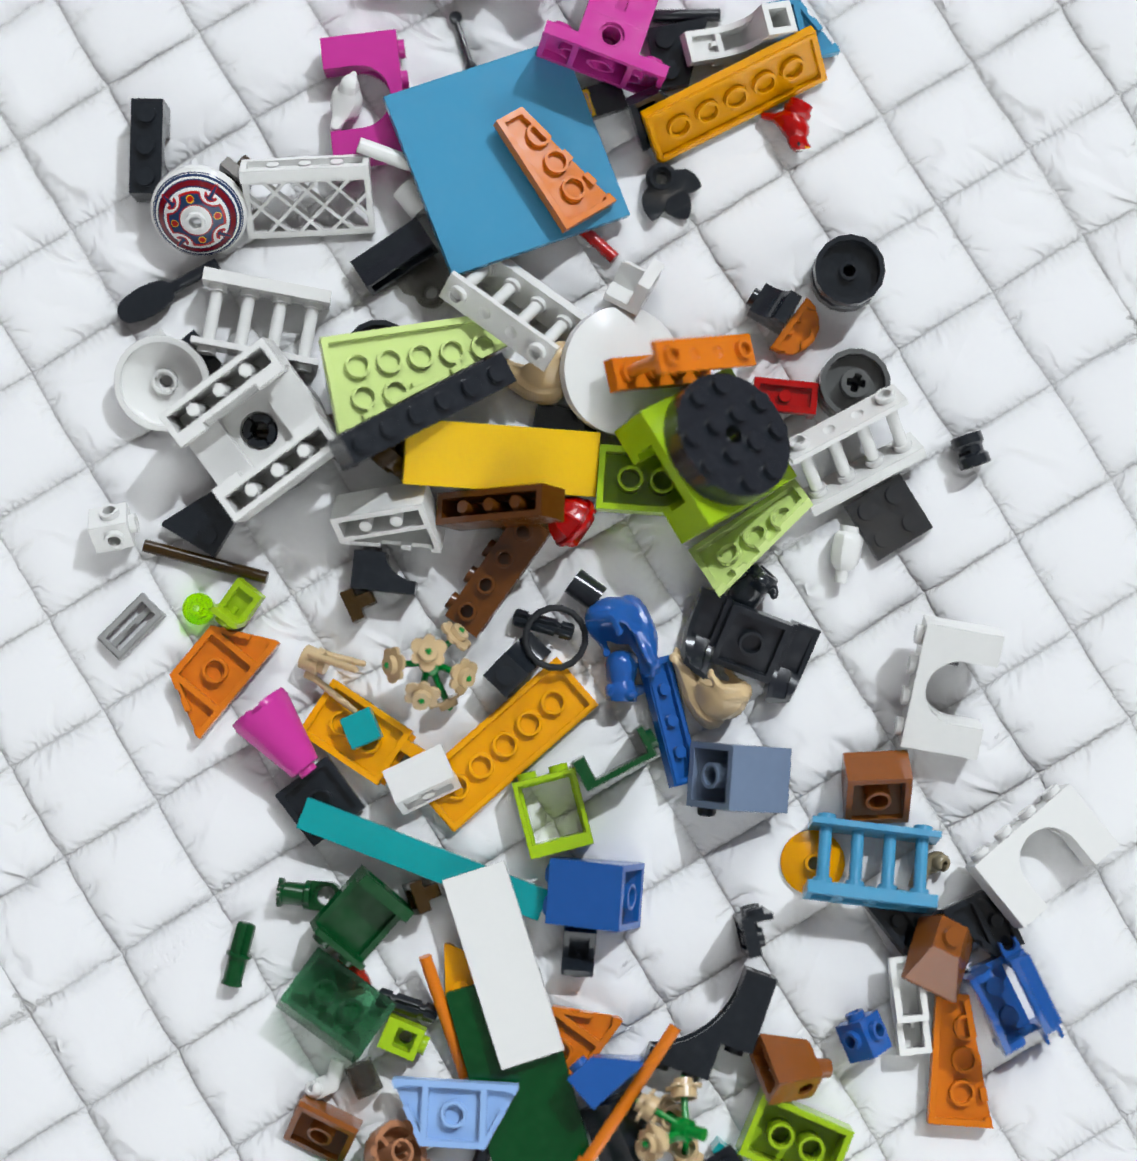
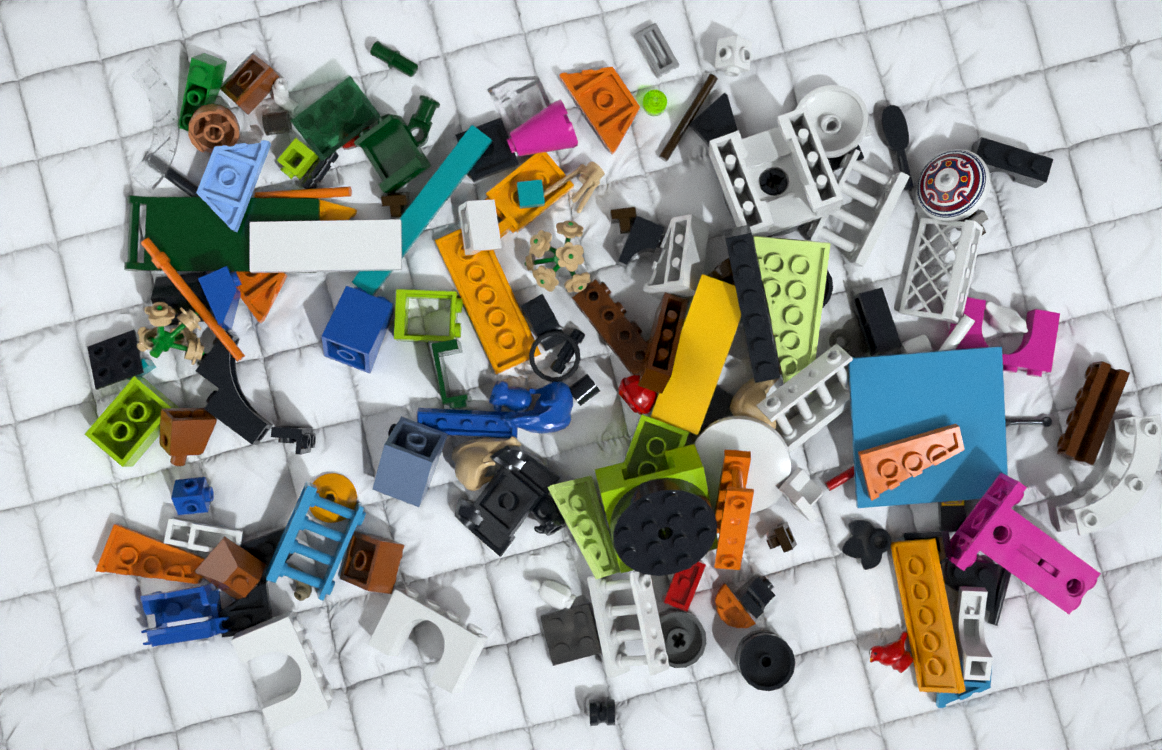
camera: 105 degrees right, 0 degrees up
(237, 605) = (648, 130): lime bracket -> none
(247, 779) = (518, 99): none -> clear slope
(578, 951) = (317, 304): black bracket -> none
(692, 294) = (783, 537): none -> dark brown tile

